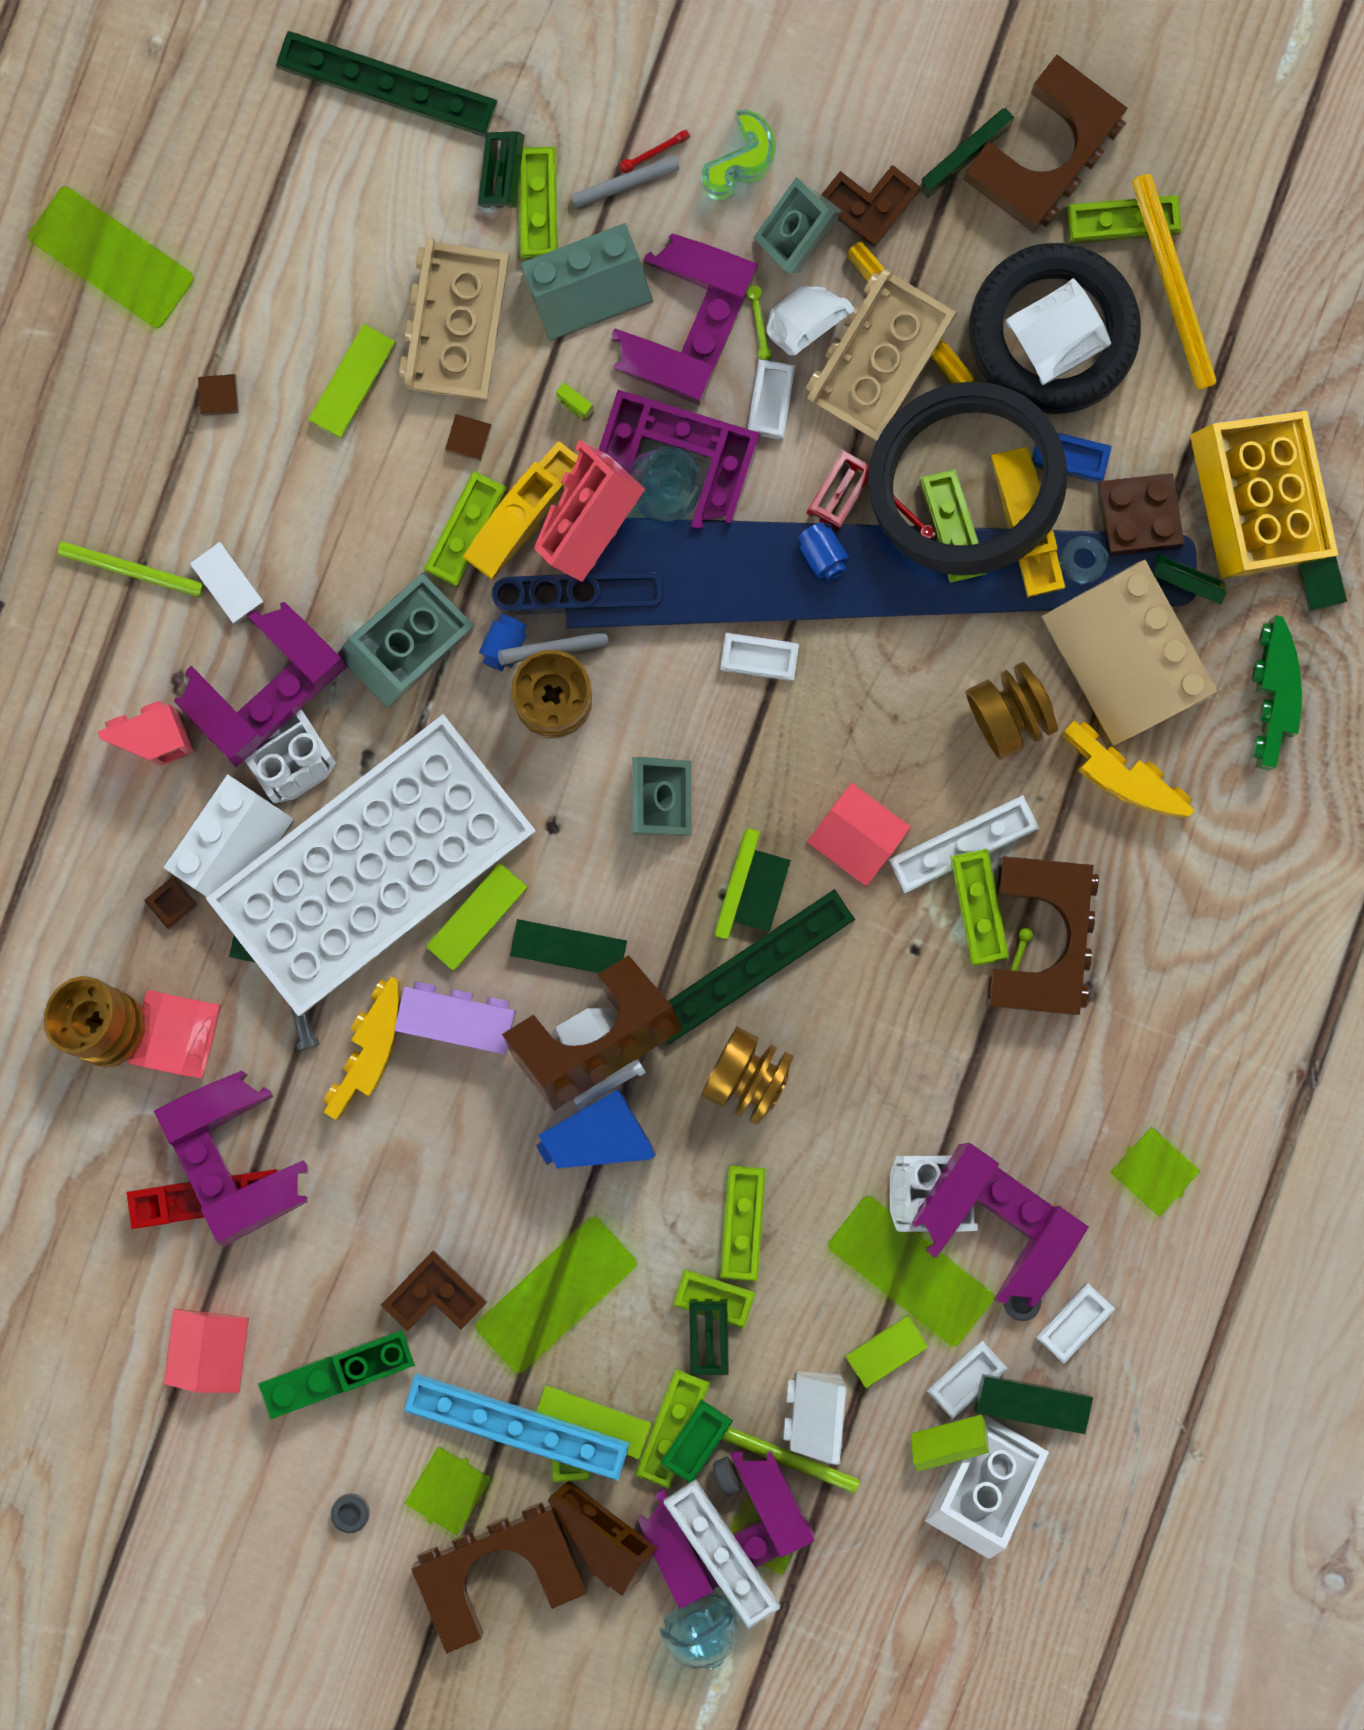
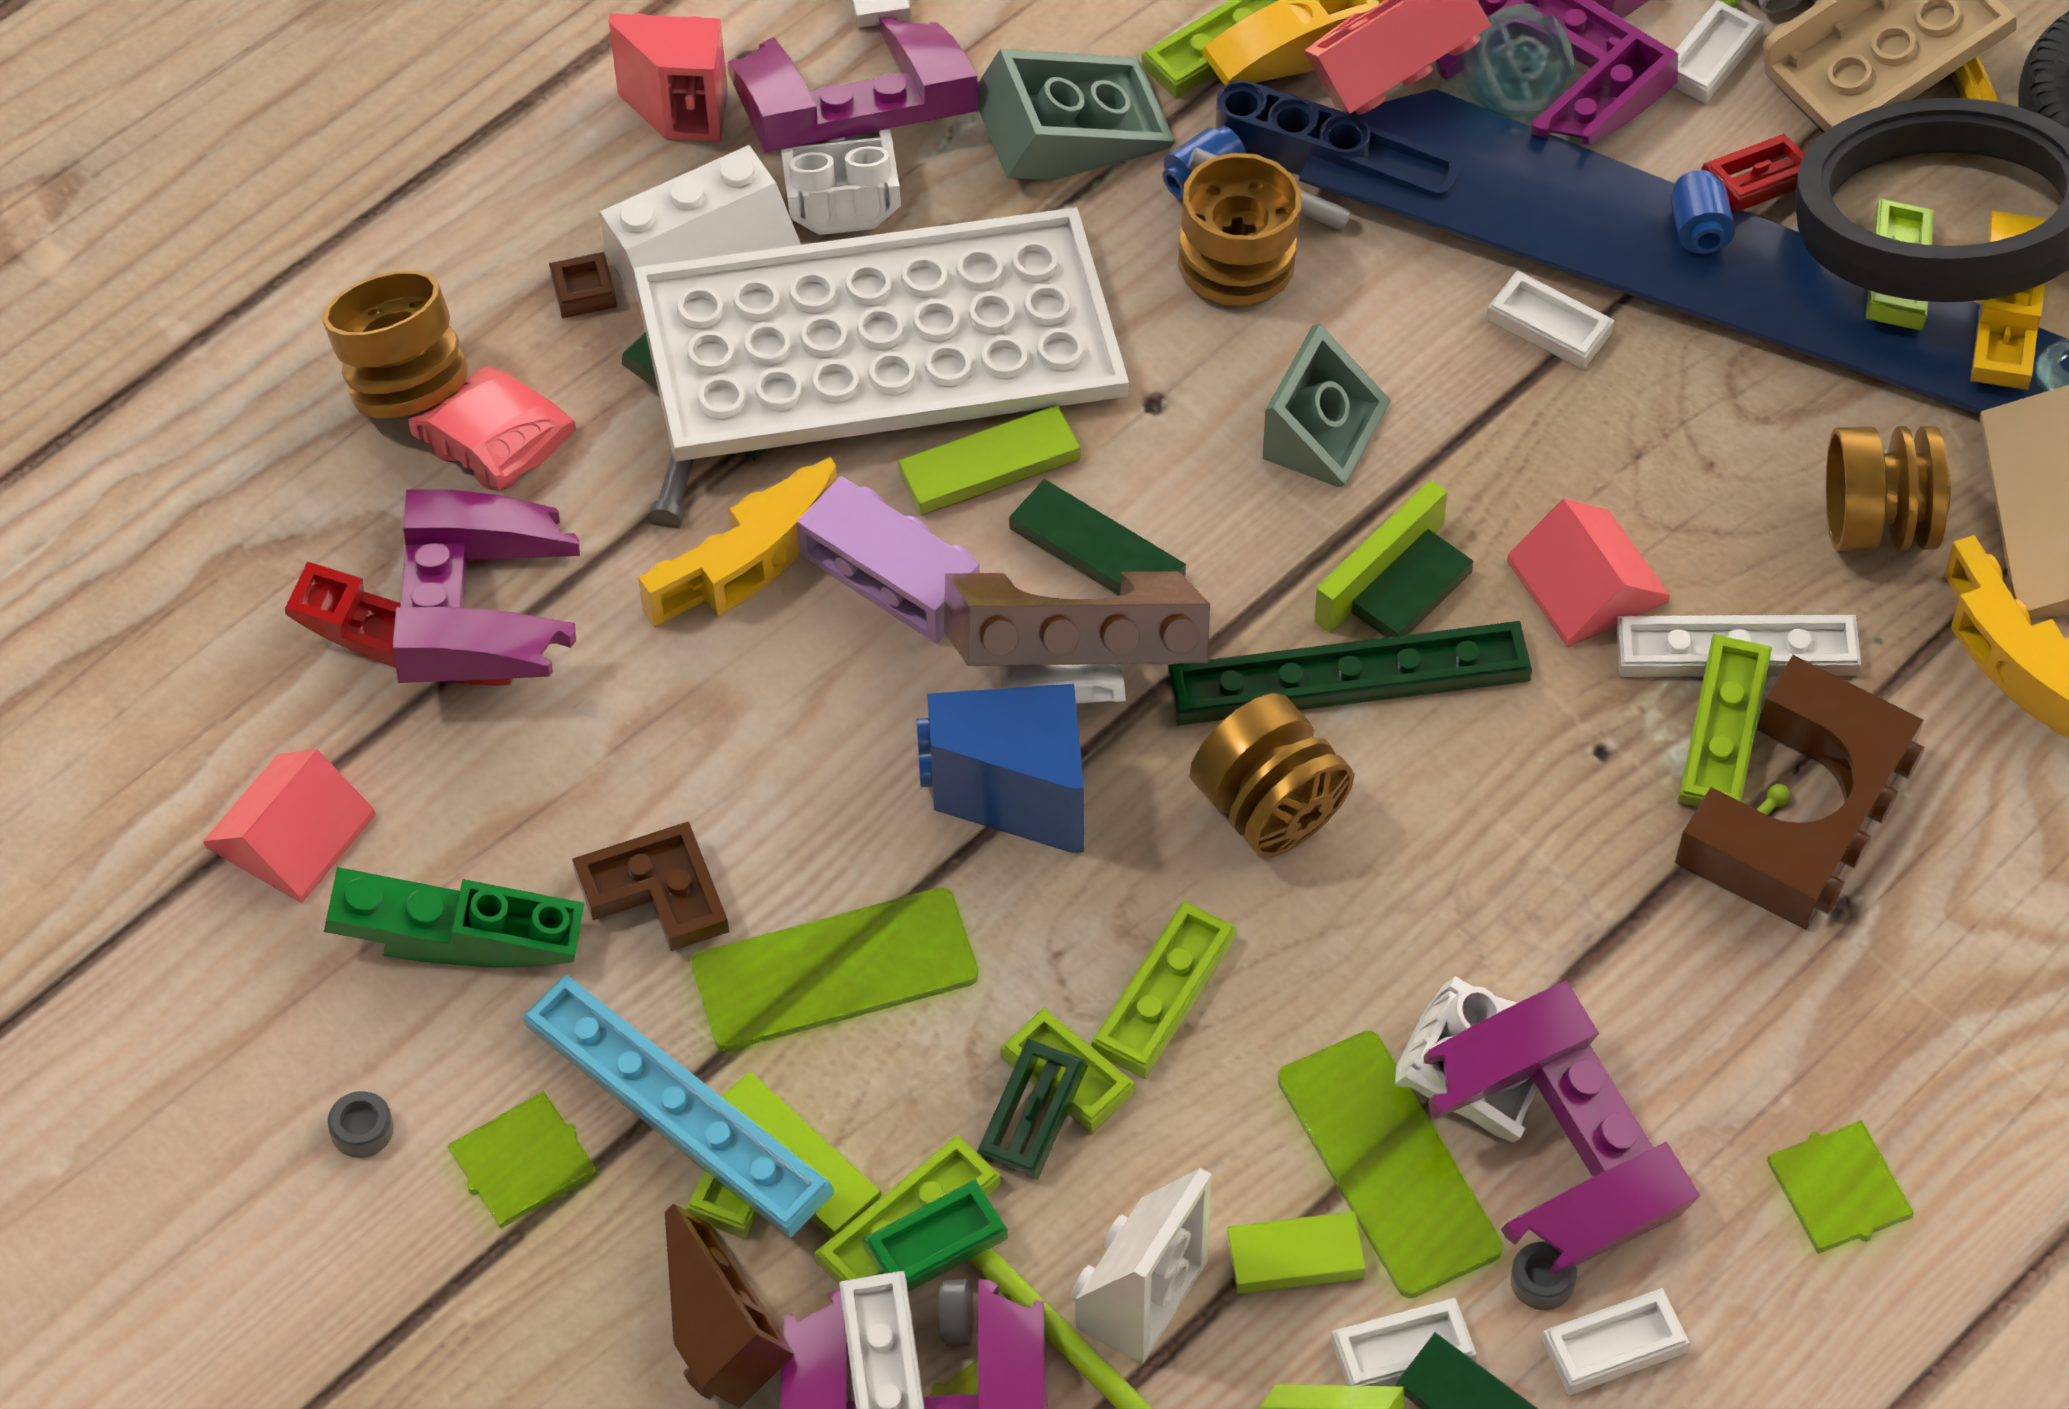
camera: 25 degrees right, 30 degrees down
(534, 1536) = (455, 1255): reddish brown arch -> none

